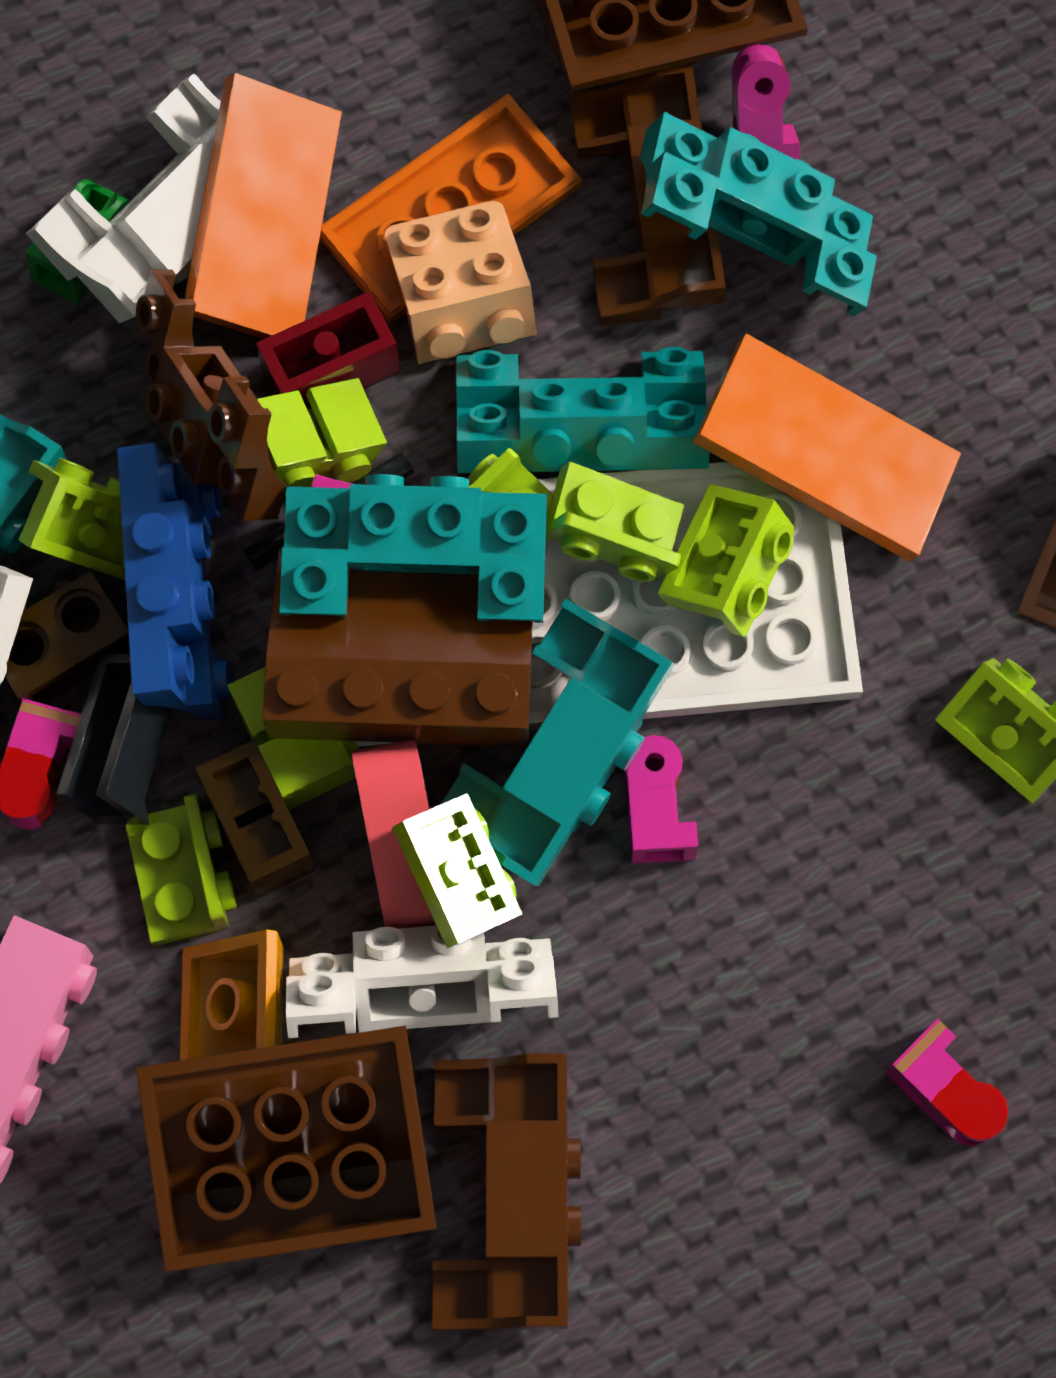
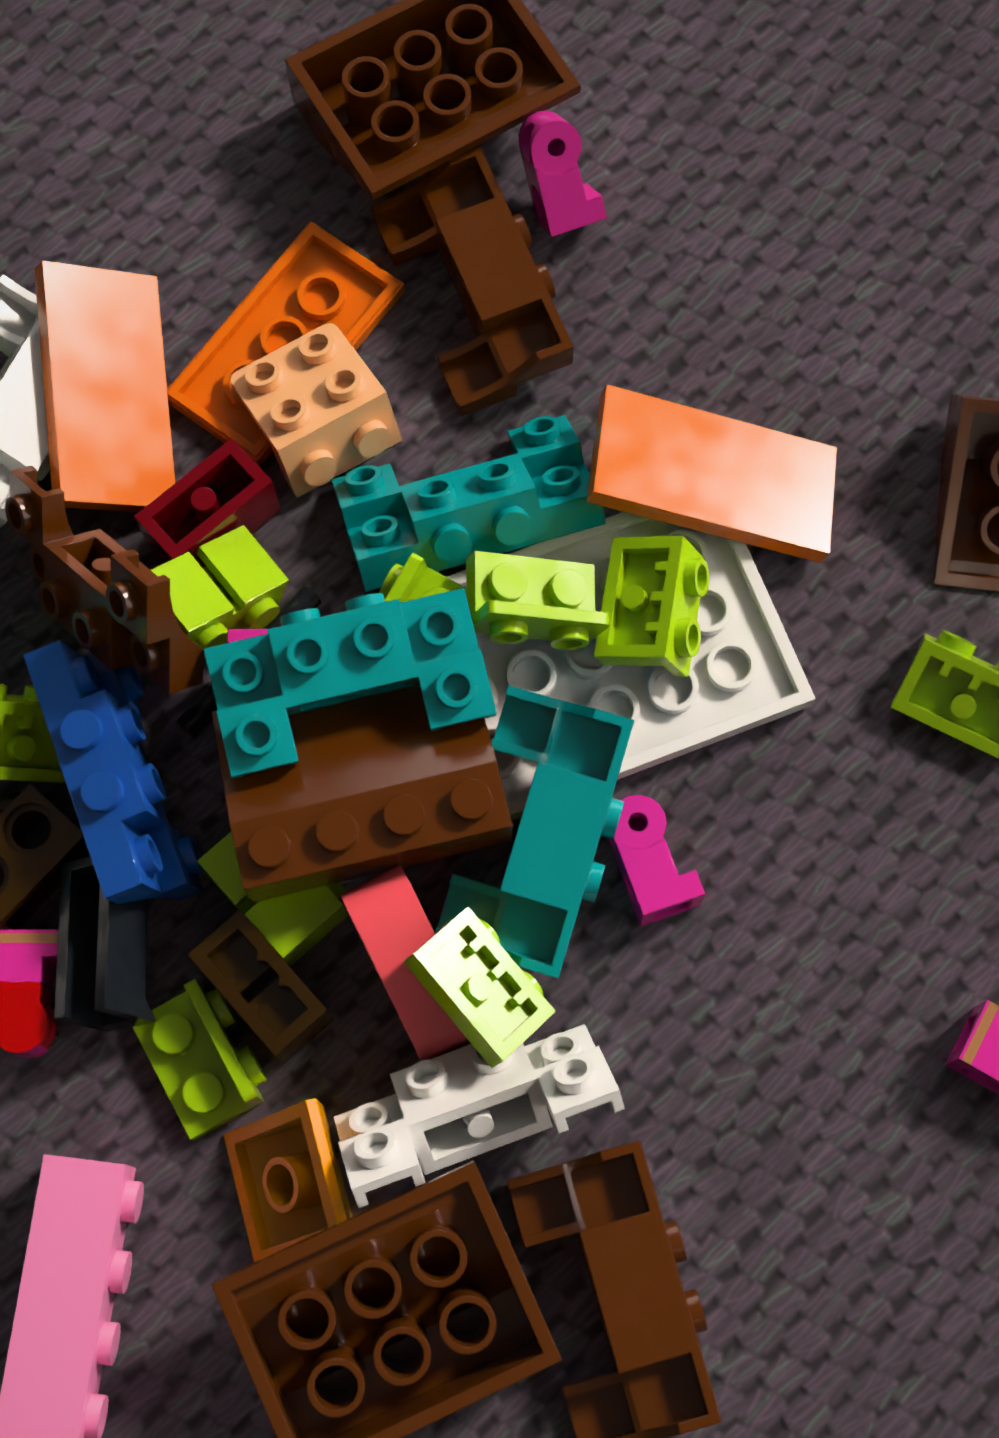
camera: 15 degrees left, 0 degrees up
(759, 201) = (583, 257): teal bracket -> none

